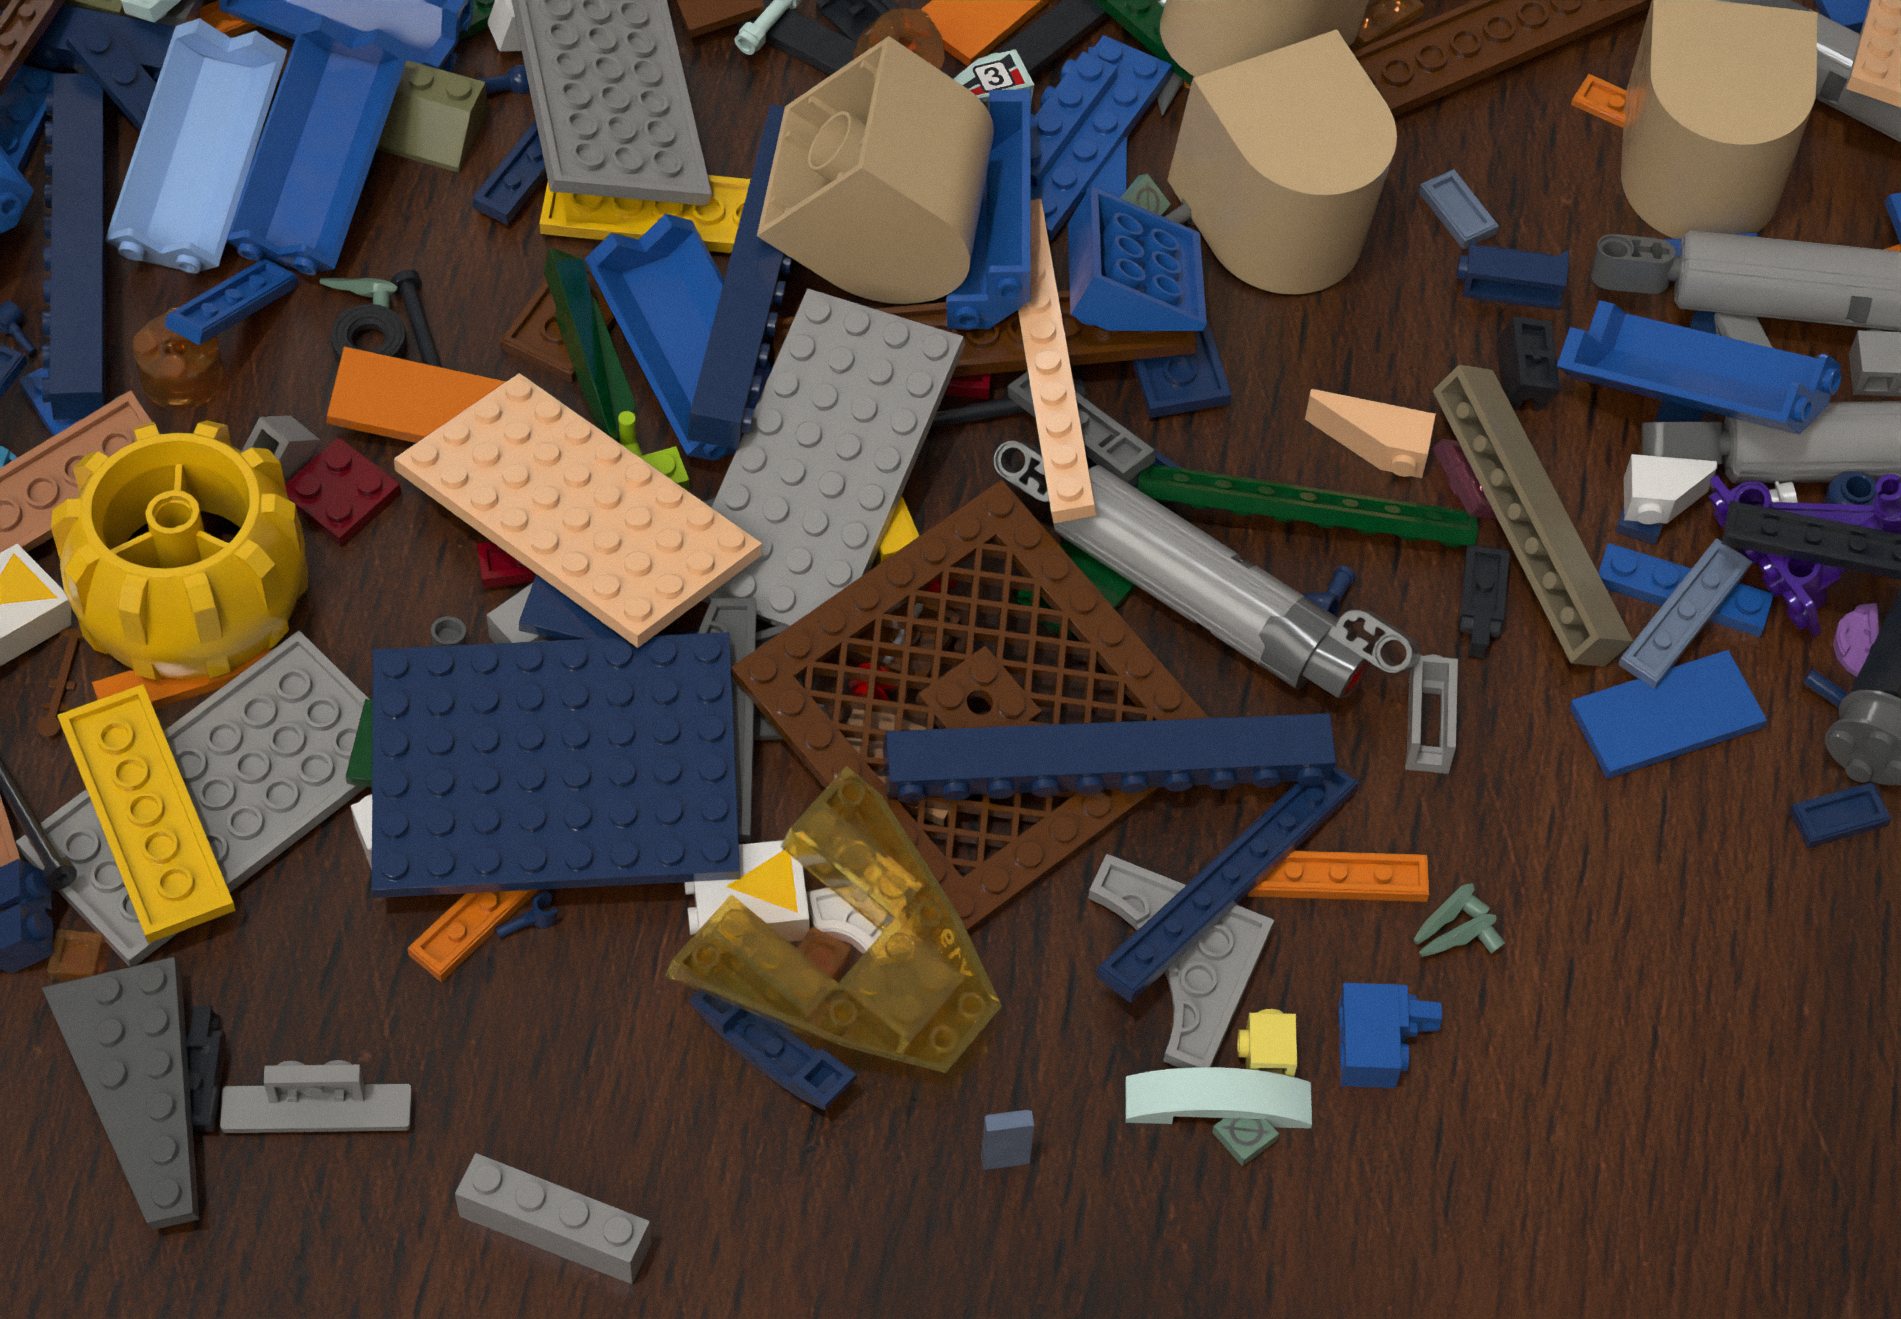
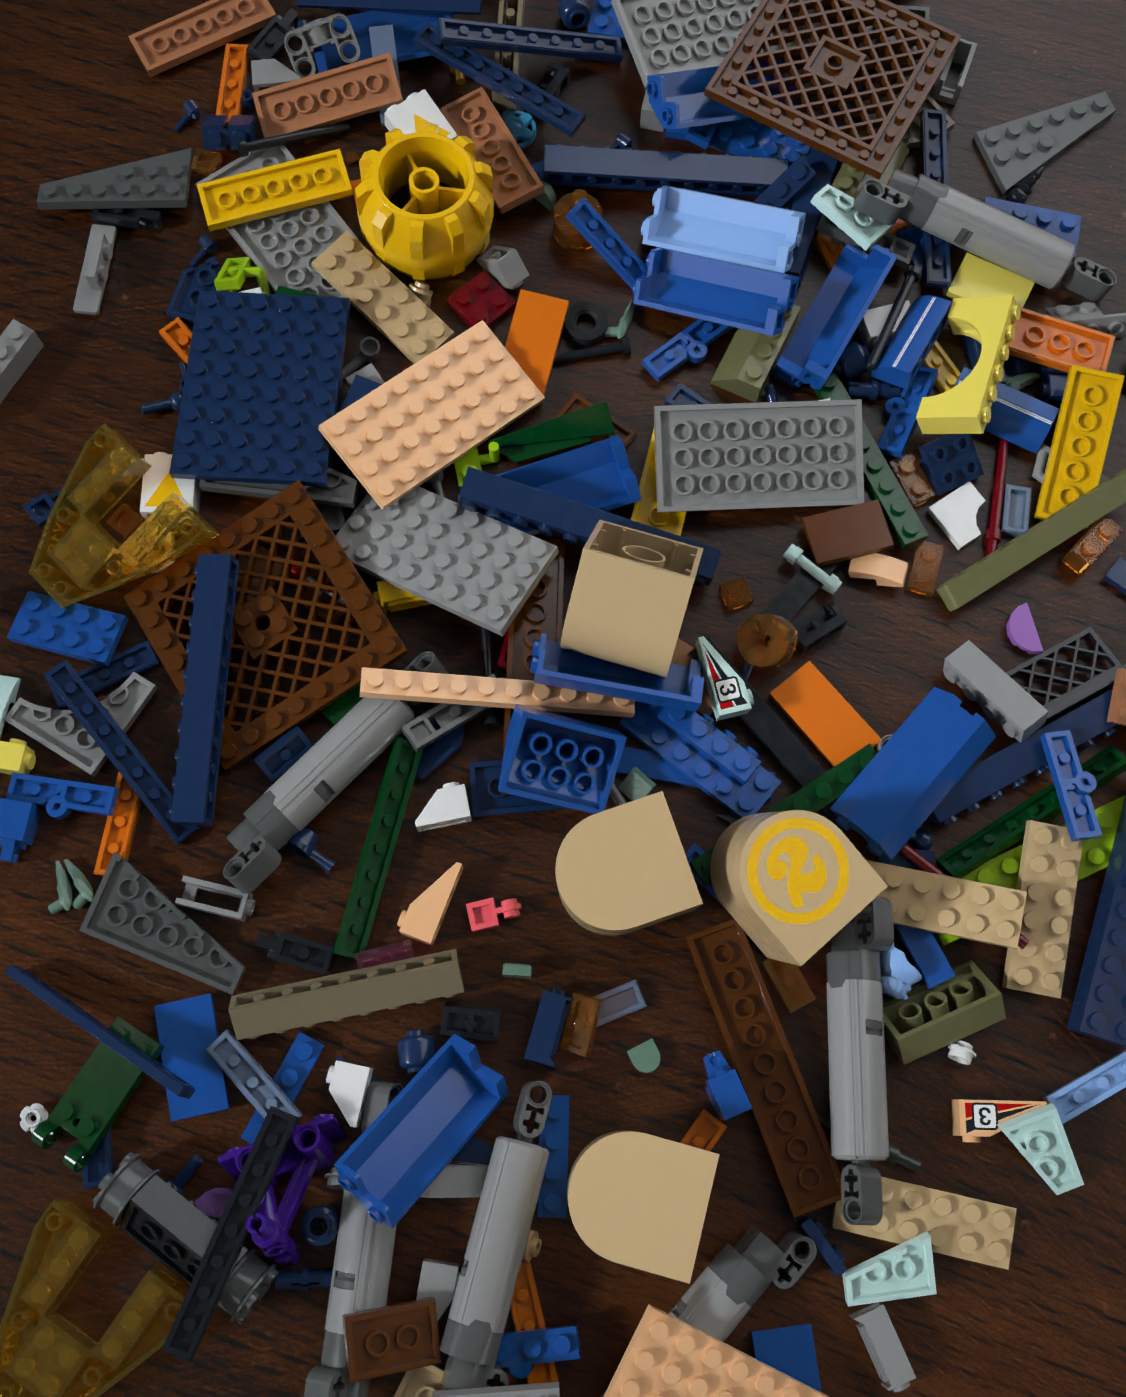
camera: 100 degrees right, 15 degrees up
(252, 925) = (208, 246): none -> dark blue hand
(324, 854) = (235, 273): none -> lime plate
(331, 581) = (422, 291): none -> tan plate
(351, 927) = (187, 291): none -> dark blue tile
(361, 611) = (382, 298): none -> tan plate
(405, 202) = (687, 345): none -> blue hinge
(574, 926) = (172, 403): none -> dark blue bar
(1029, 1039) = (68, 631): none -> blue plate
(1089, 937) = (102, 678): none -> dark blue tile
(1174, 649) = (283, 753): none -> dark blue plate
(1226, 432) = (445, 808): none -> white slope
(1317, 955) = (63, 795): none -> blue hinge
(1370, 367) = (484, 913): none -> coral plate
(1444, 318) = (517, 970): none -> sand green tile
(1491, 798) = (147, 923): none -> dark grey wing
(1498, 229) = (581, 1024): none -> clear orange plate
(1520, 168) = (645, 1056): none -> sand green tile
(1552, 57) = (724, 1087): none -> blue hinge
(1589, 421) = (415, 1050): none -> dark blue head
(1669, 814) = (101, 1032): none -> dark blue tile
(1749, 817) = (96, 1097): none -> dark green hinge
(1810, 916) = (27, 1113): none -> white plate

